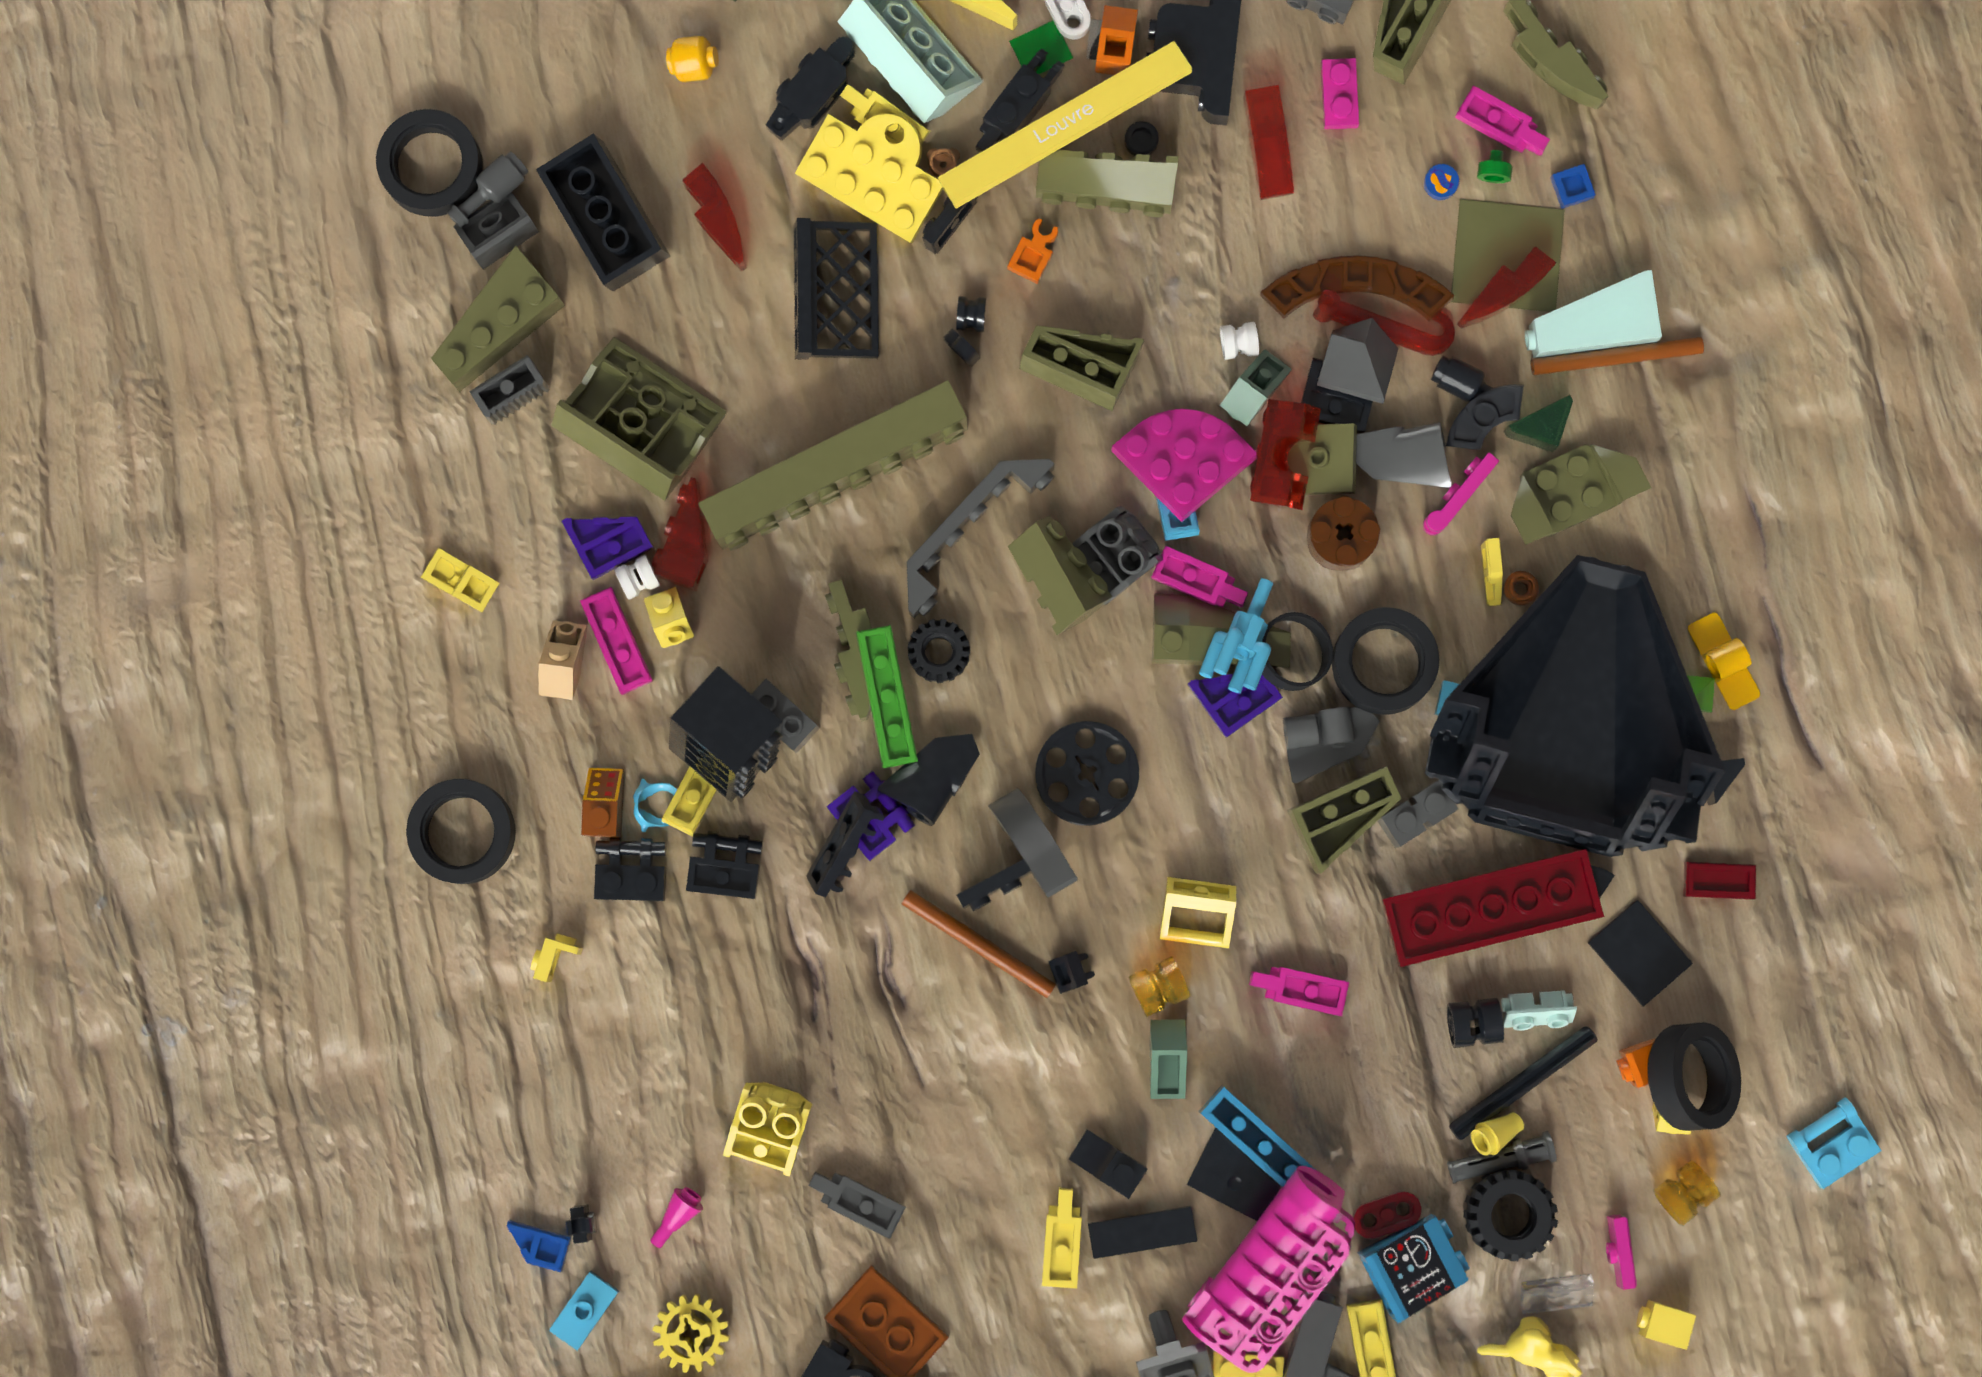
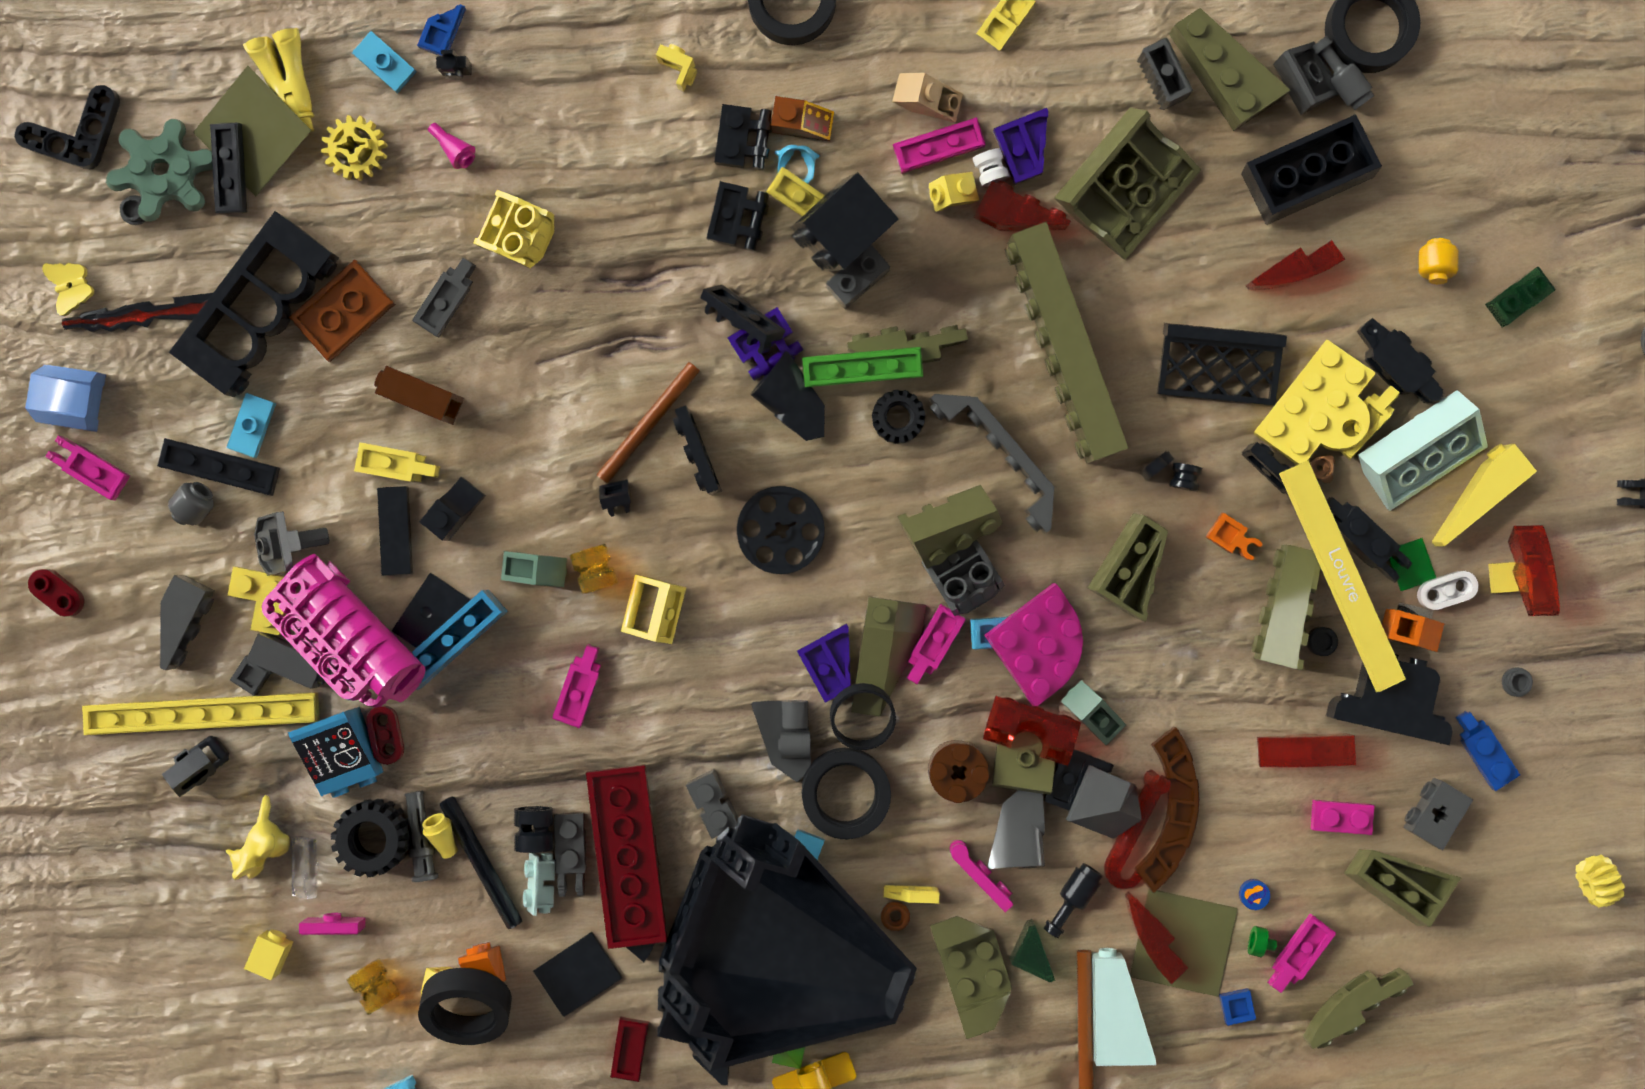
camera: 90 degrees right, 5 degrees up
(978, 1218) = (418, 395): none -> reddish brown brick
(1033, 842) = (723, 475): dark grey slope -> none
(1240, 340) = (1135, 705): white wheel -> none
(1241, 643) = (873, 673): medium azure plant -> none
(1340, 816) = (719, 740): olive wedge -> none
(1483, 414) = (1048, 905): black tile -> none
(1494, 978) = (570, 850): none -> dark grey hinge

